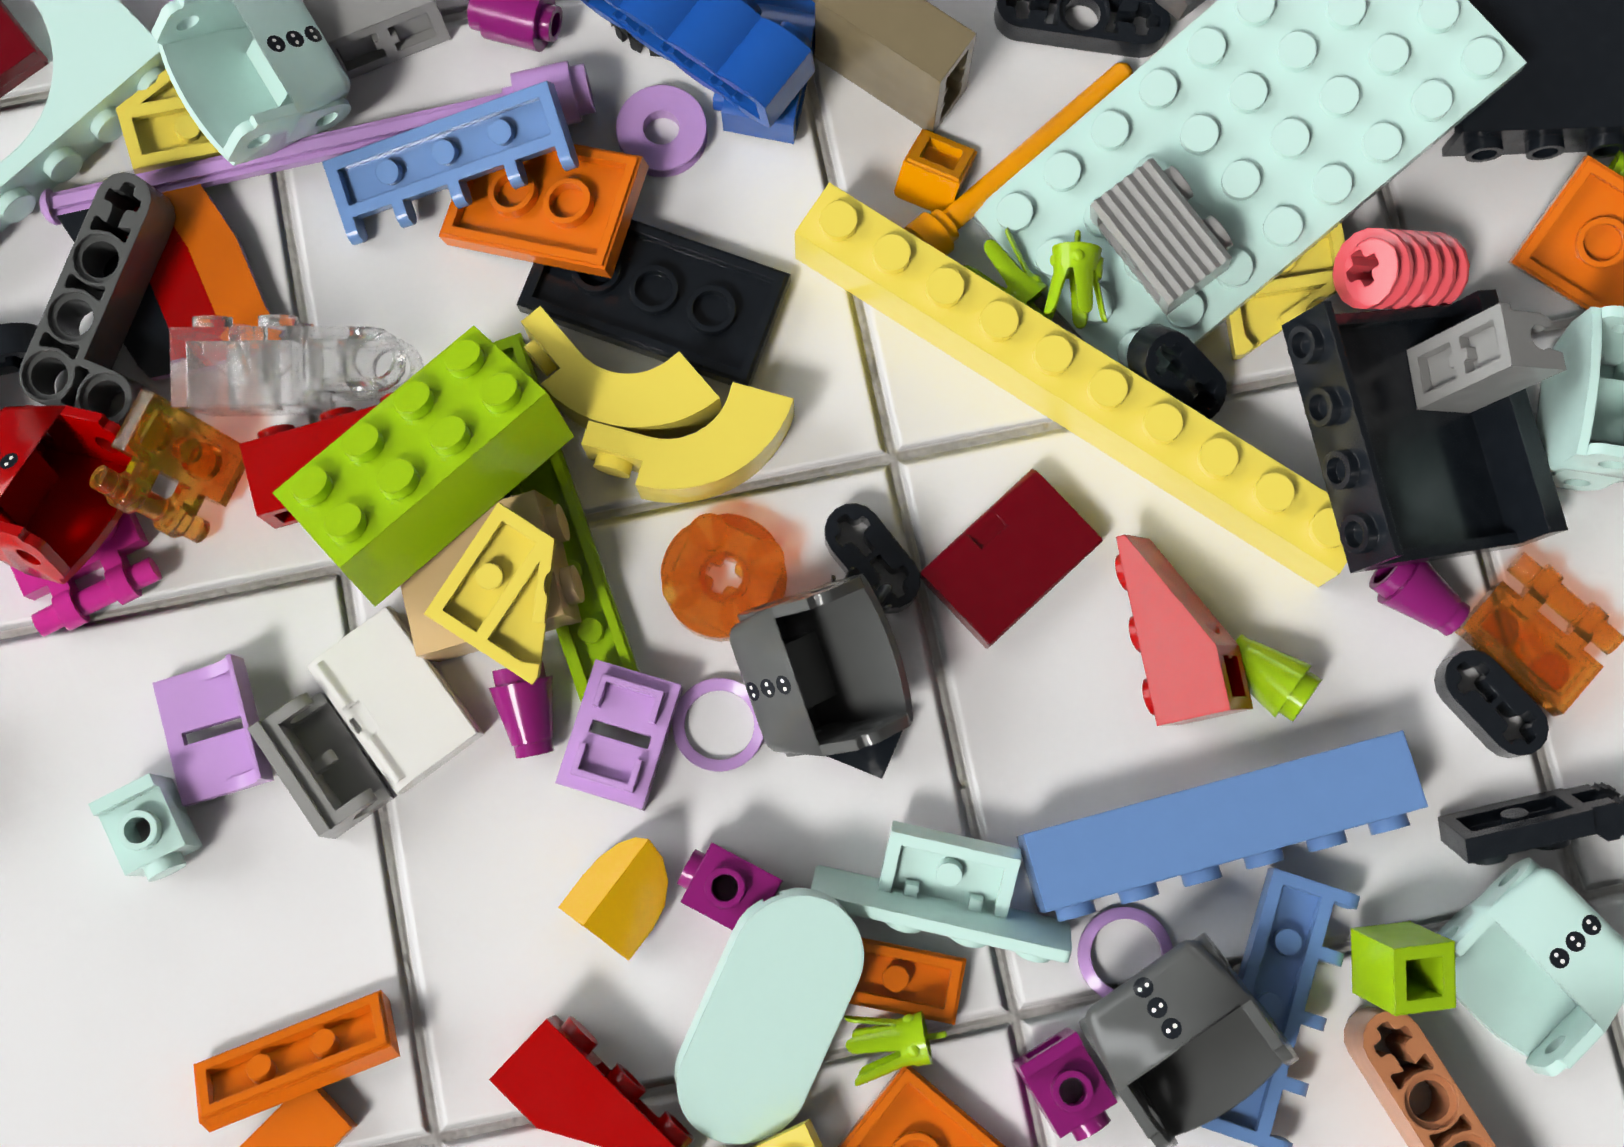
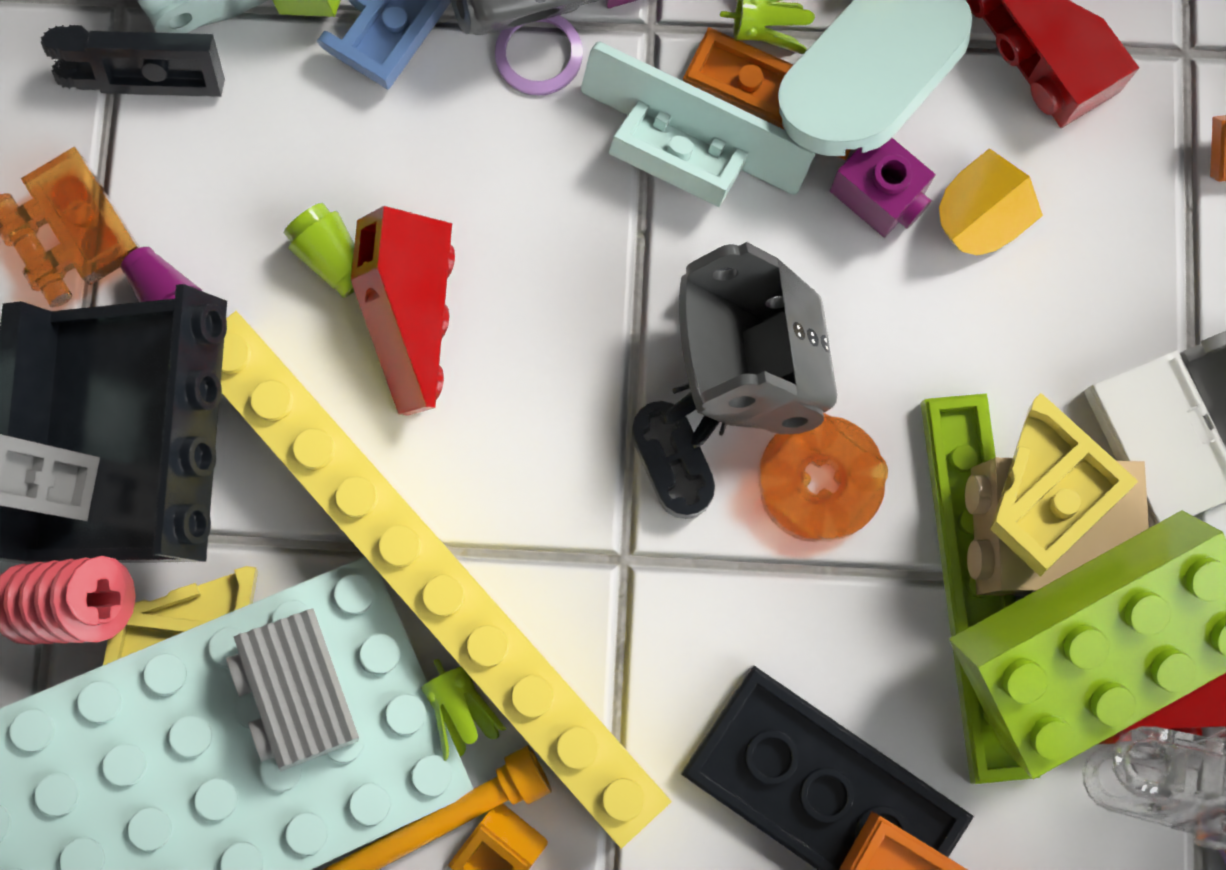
camera: 165 degrees left, 0 degrees up
(525, 711) = (1039, 374): magenta cone -> none
(609, 765) = (939, 374): lavender piece -> none
(653, 403) = (901, 679): light yellow arch -> none
(678, 726) = (892, 327): lavender piece -> none
(701, 463) = (824, 590): light yellow arch -> none
(1010, 558) = (539, 425): dark red piece -> none
(1084, 268) = (382, 681): lime piece -> none
(1185, 364) = (314, 561): black beam -> none
(1222, 823) = (418, 131): medium blue brick -> none
(1501, 693) = (123, 184): black beam -> none

